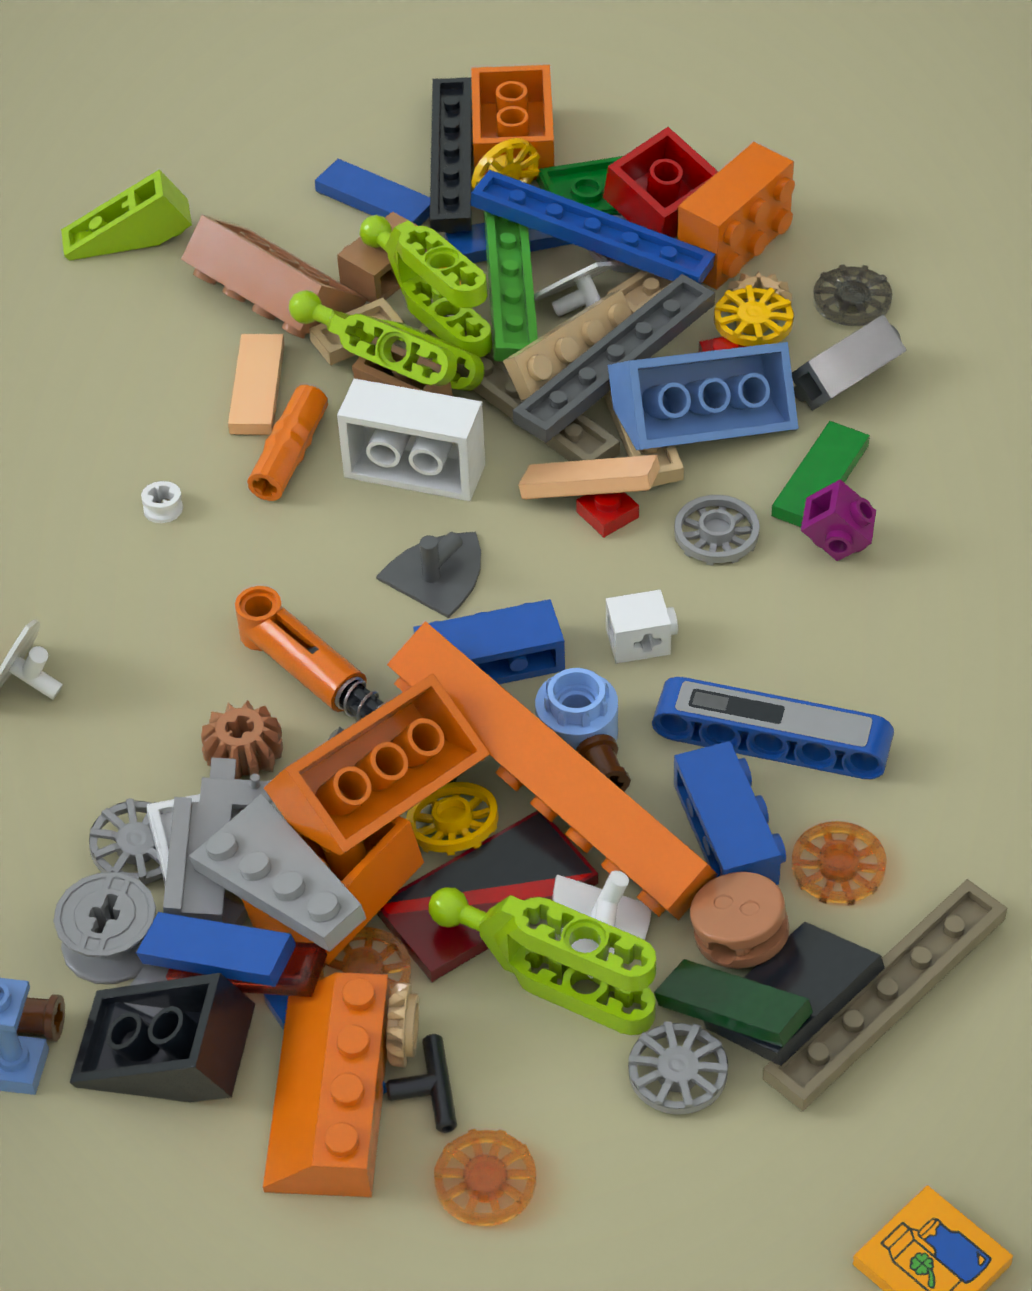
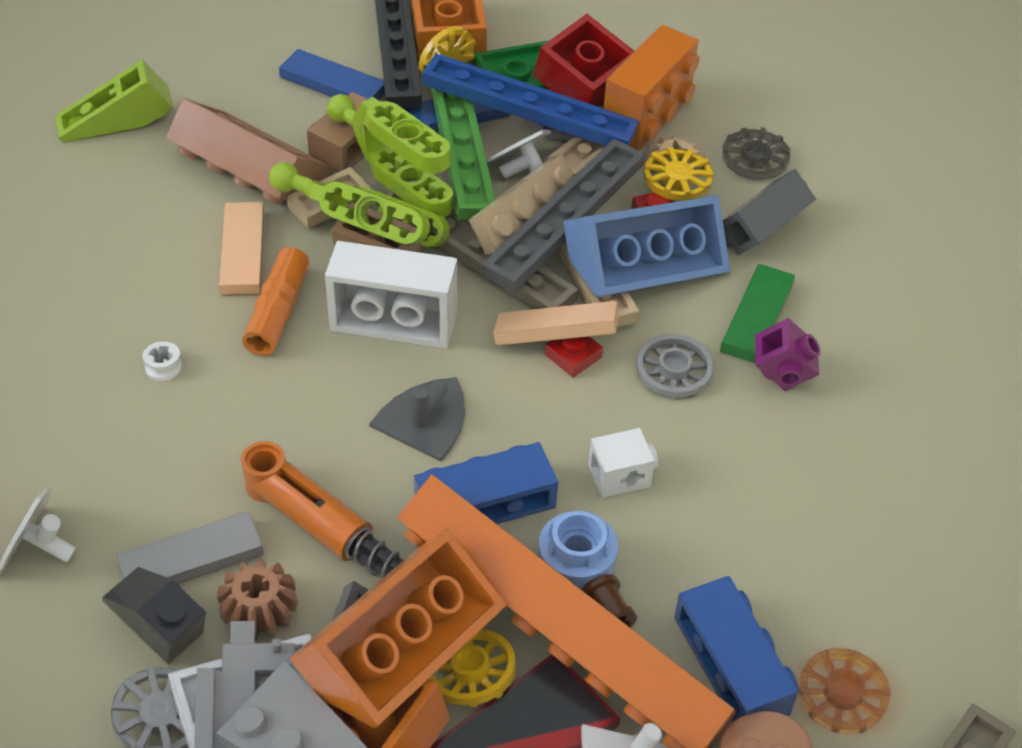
camera: 10 degrees left, 0 degrees up
(141, 748) = (157, 612): none -> black slope
(177, 697) = (197, 550): none -> light grey tile
(774, 727) = (761, 556): blue beam -> none

